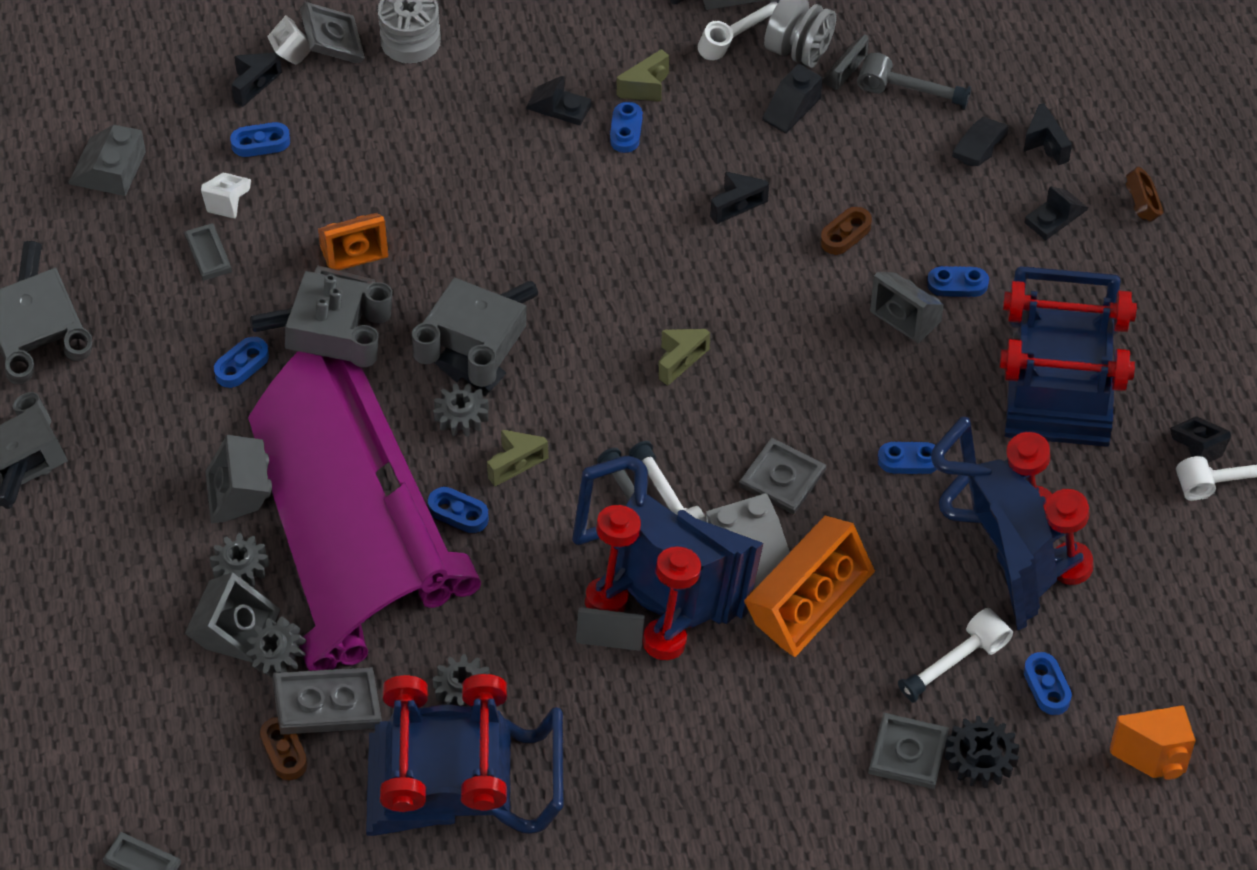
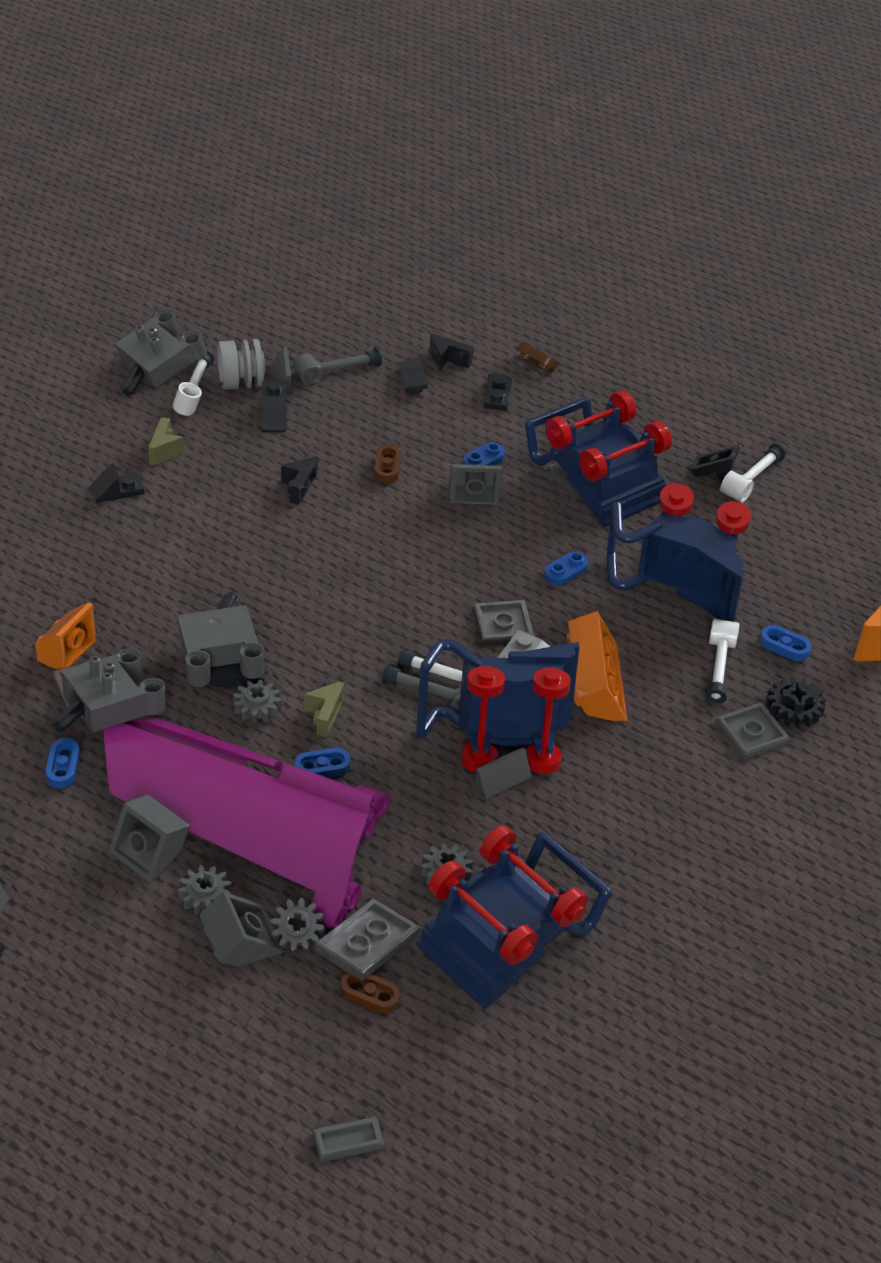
camera: 45 degrees left, 10 degrees down
(626, 124) = (178, 478): blue plate -> none
(683, 350) = (362, 582): olive slope -> none

